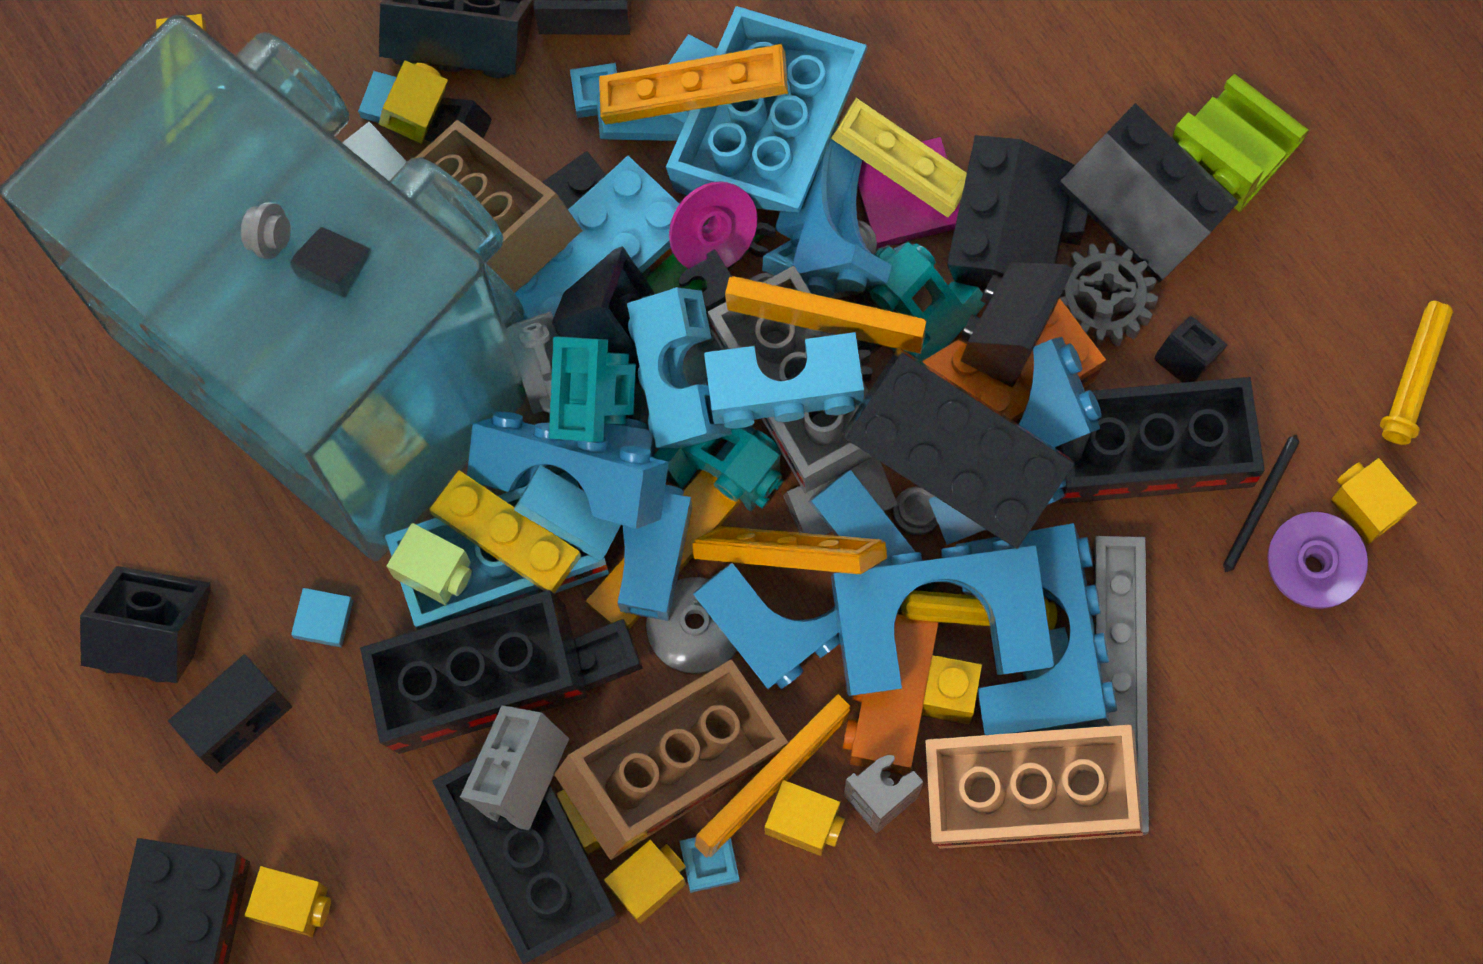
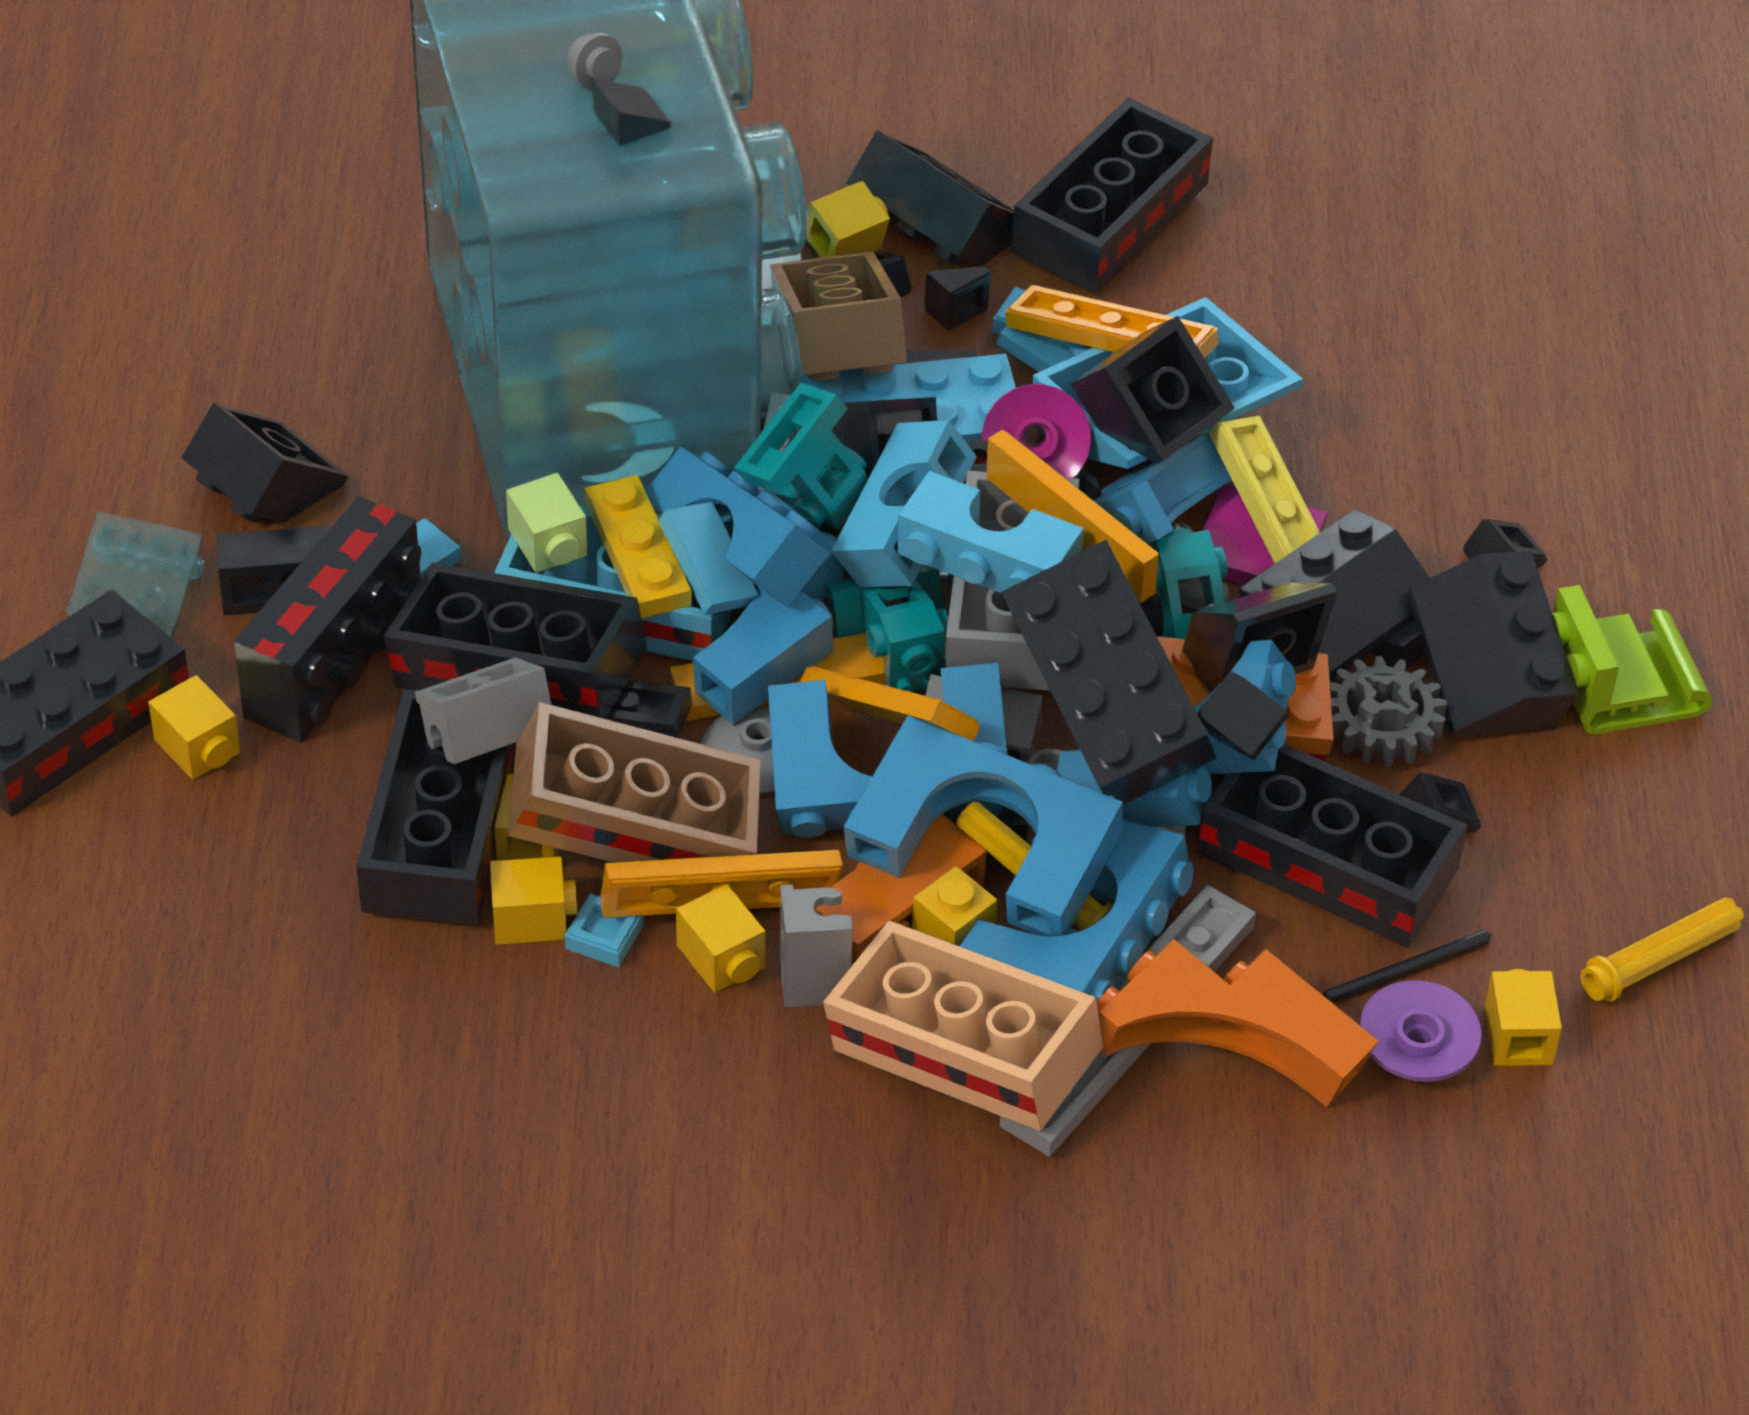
camera: 30 degrees right, 25 degrees down
(129, 794) = (140, 563): none -> clear light blue hinge
(319, 744) = (327, 620): none -> black brick
(536, 109) = (957, 294): none -> black slope
(780, 138) = (1154, 392): none -> black slope
(1078, 86) = (1502, 537): none -> black slope
(1078, 421) = (1242, 715): none -> black slope
(1209, 626) = (1252, 1011): none -> orange arch

